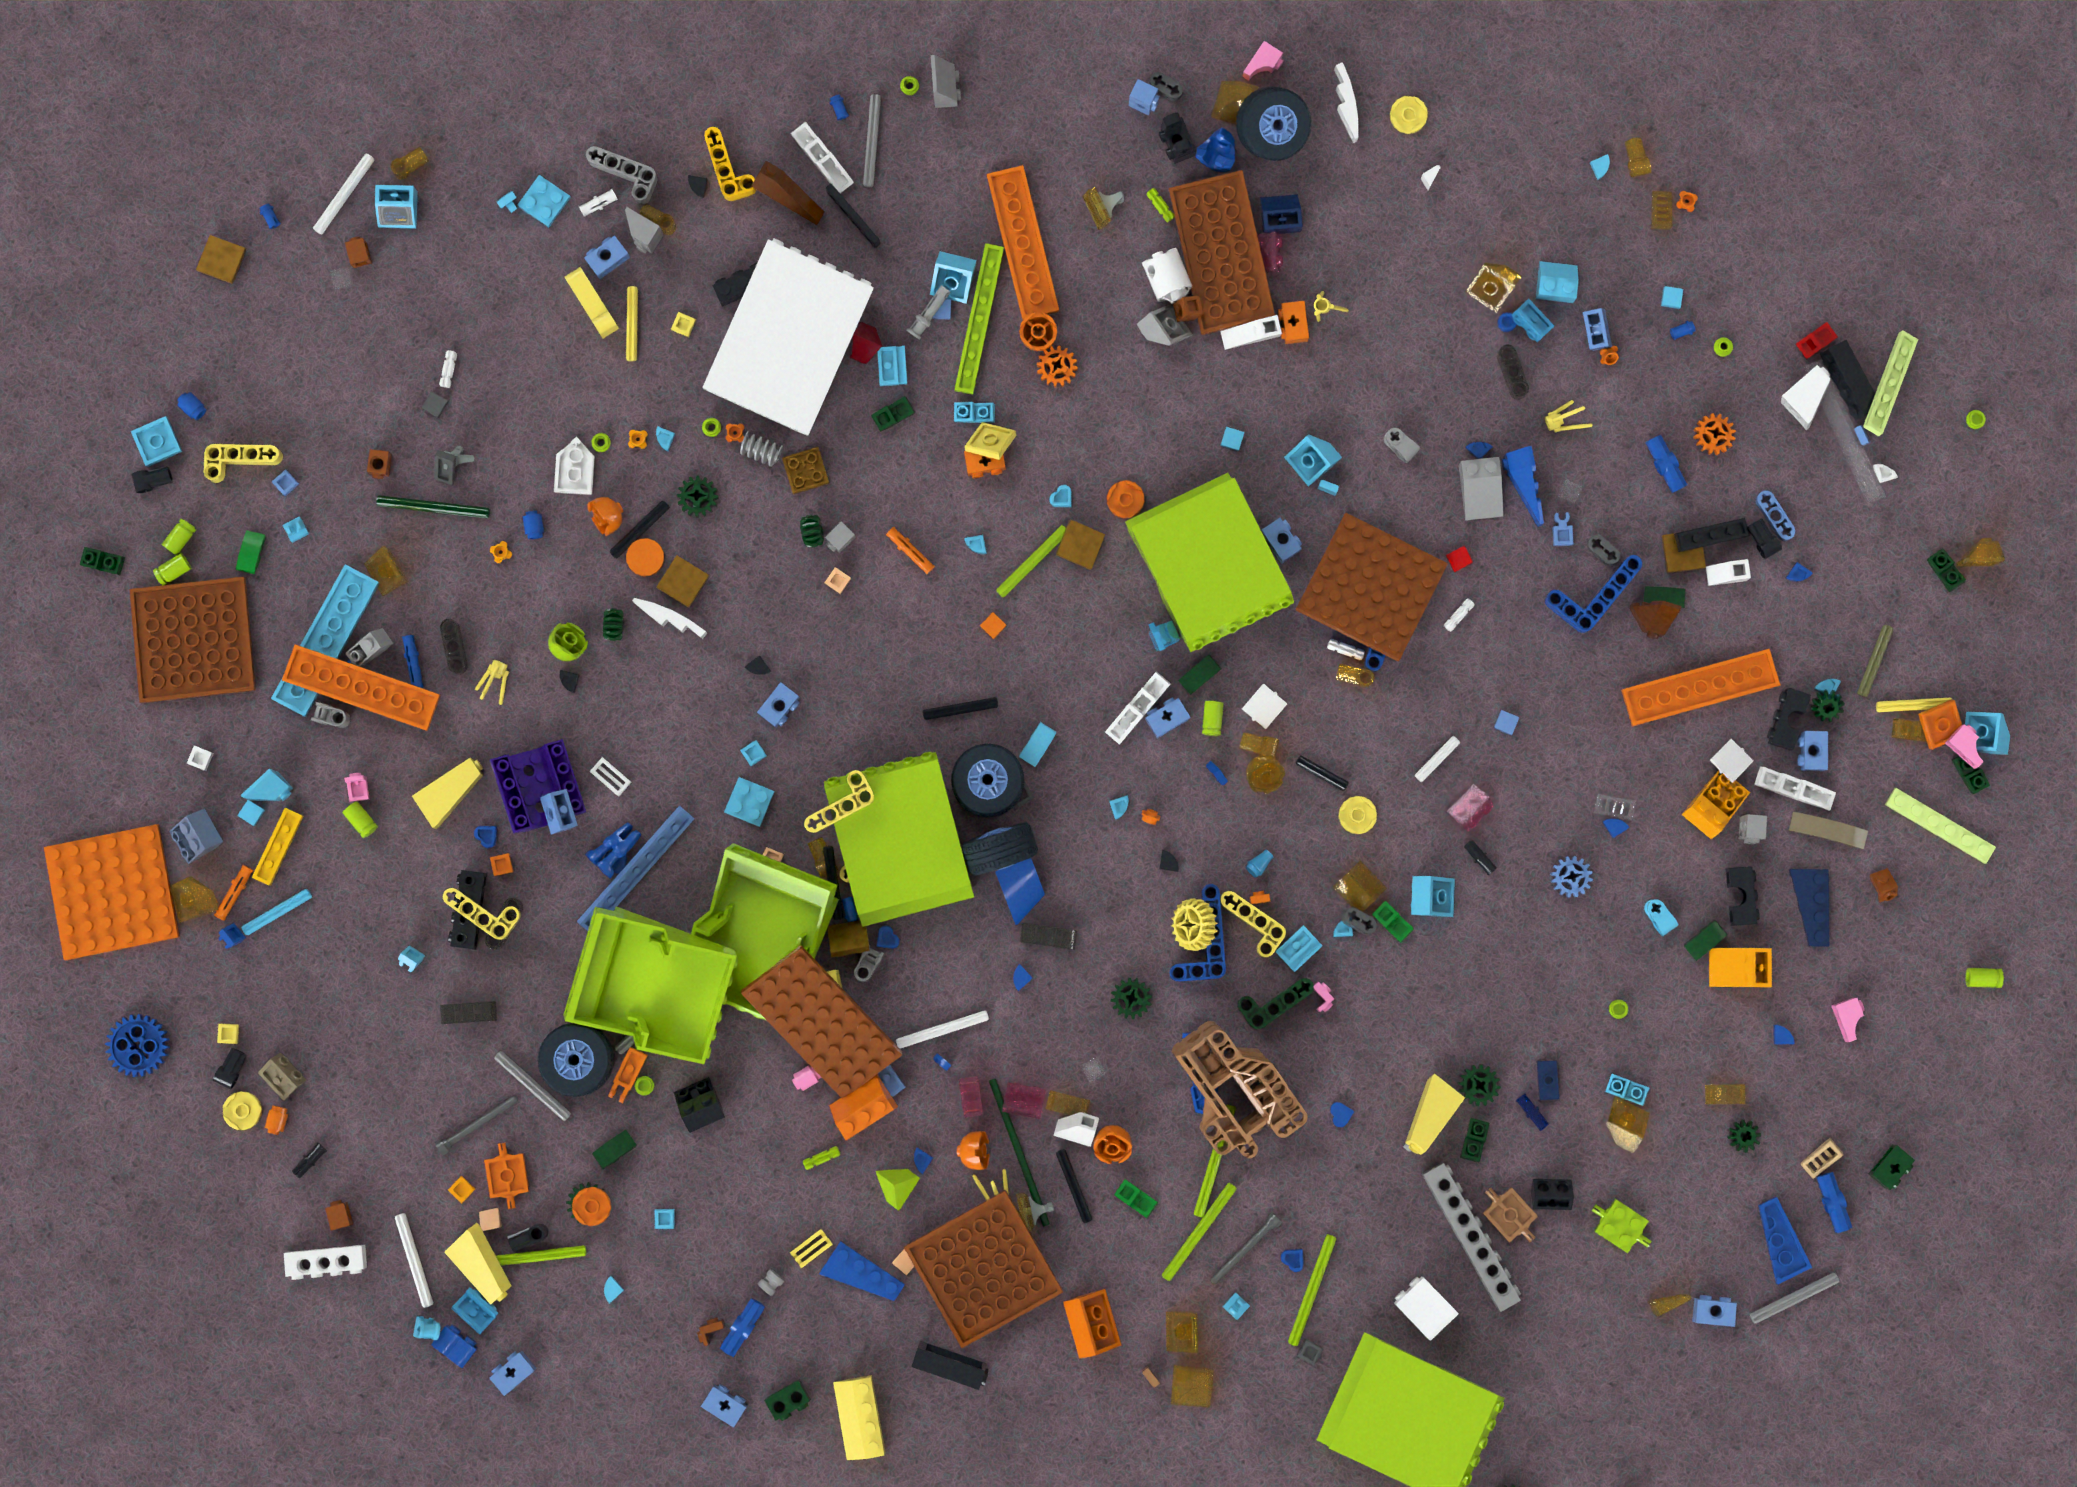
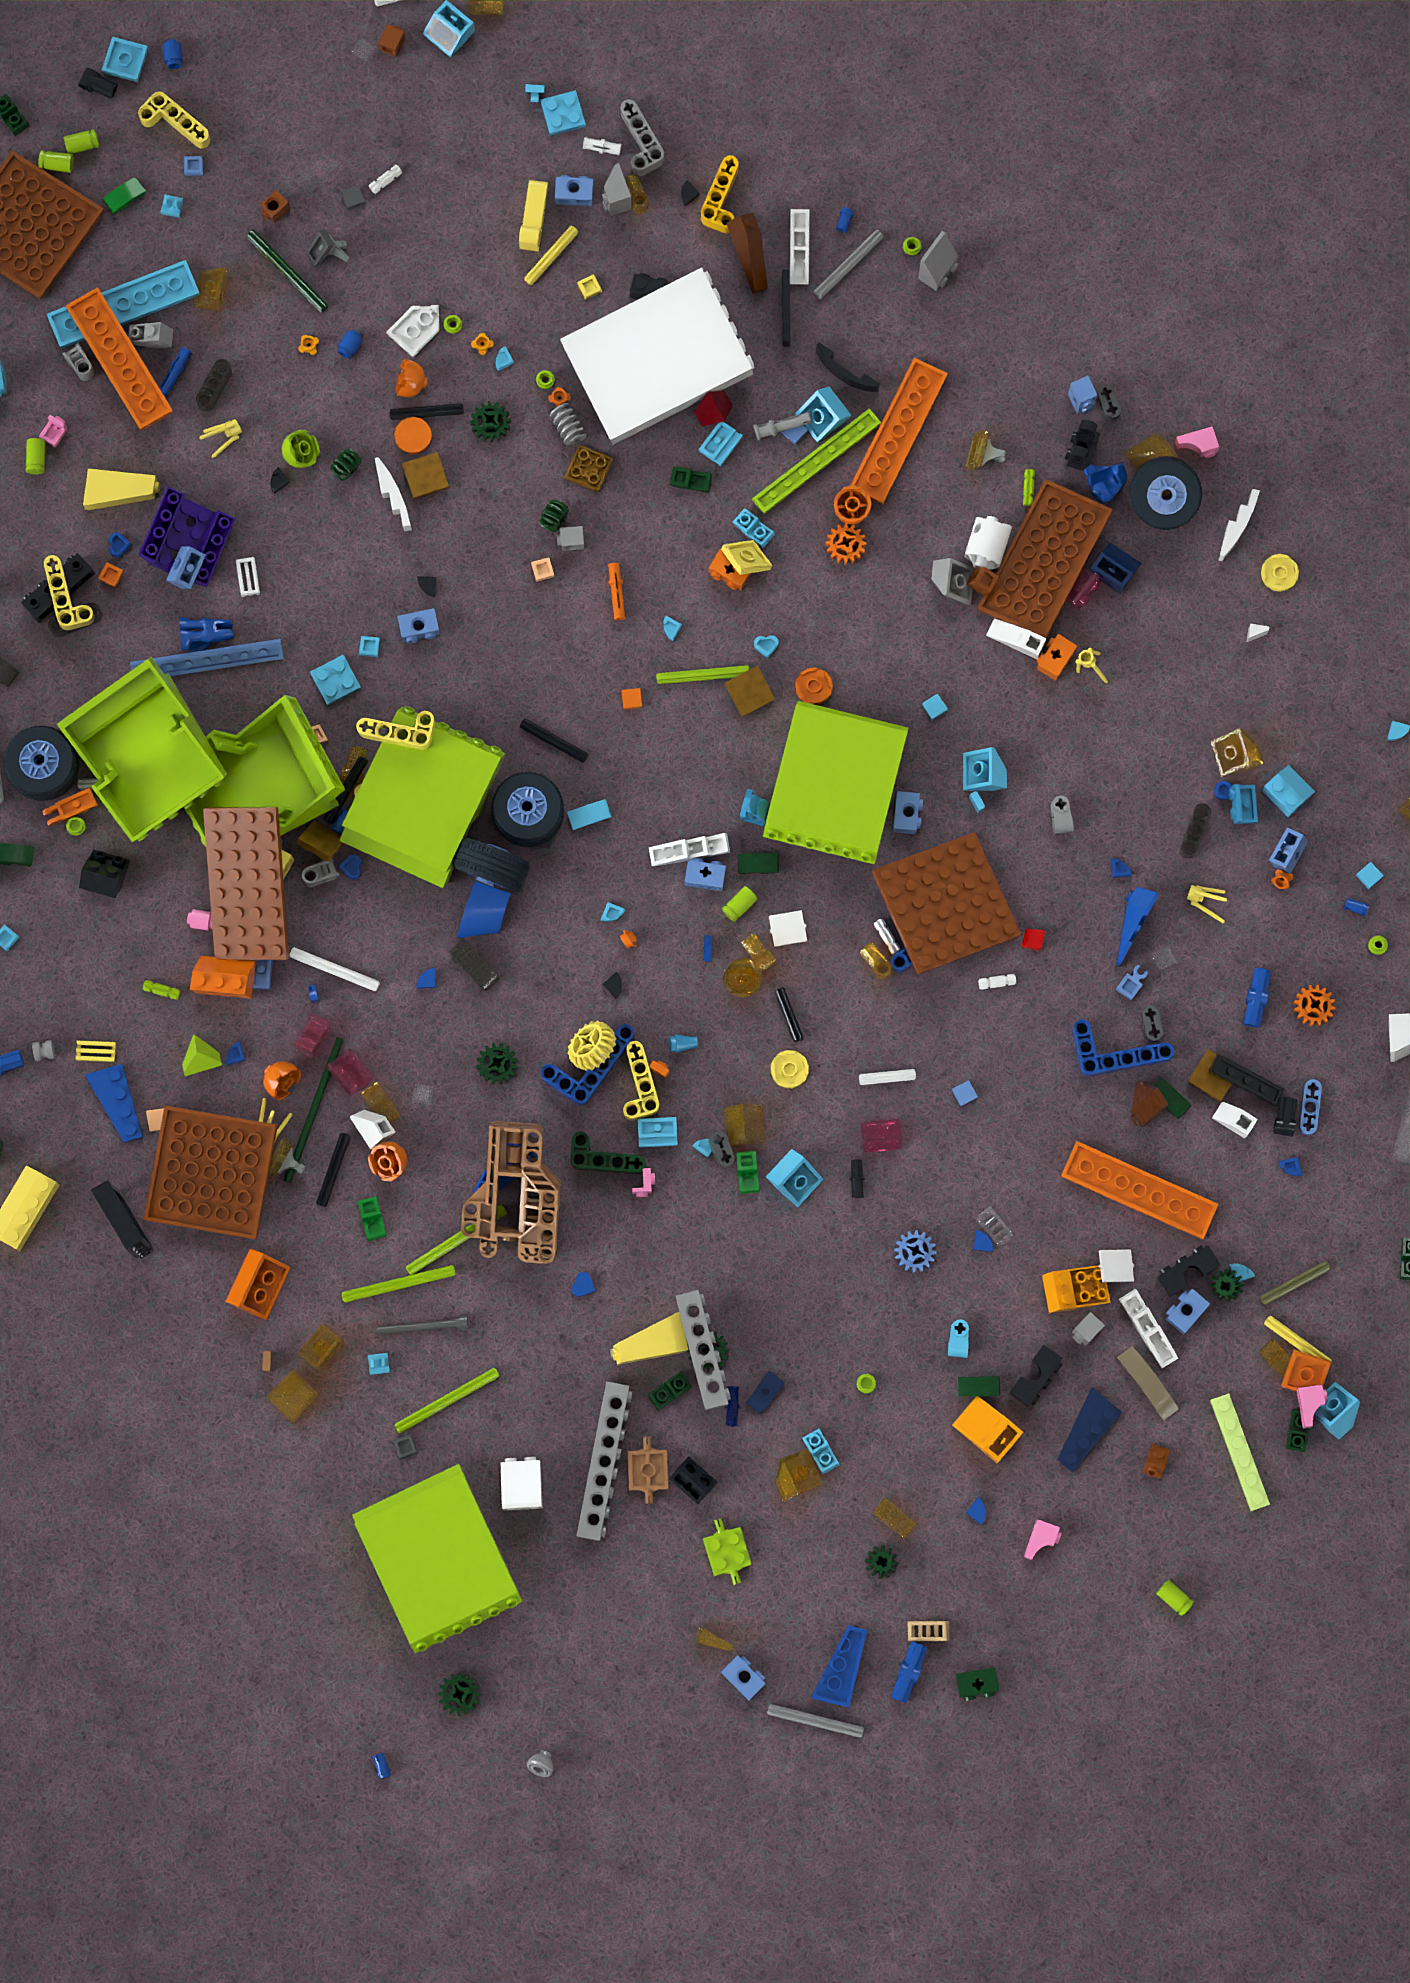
camera: 40 degrees right, 5 degrees down
(916, 229) = (865, 383): none -> black slope
(1293, 1259) = (453, 1365): blue tile -> none
(1481, 488) = (1096, 899): light grey slope -> none
(1522, 1112) = (685, 1302): none -> light grey brick

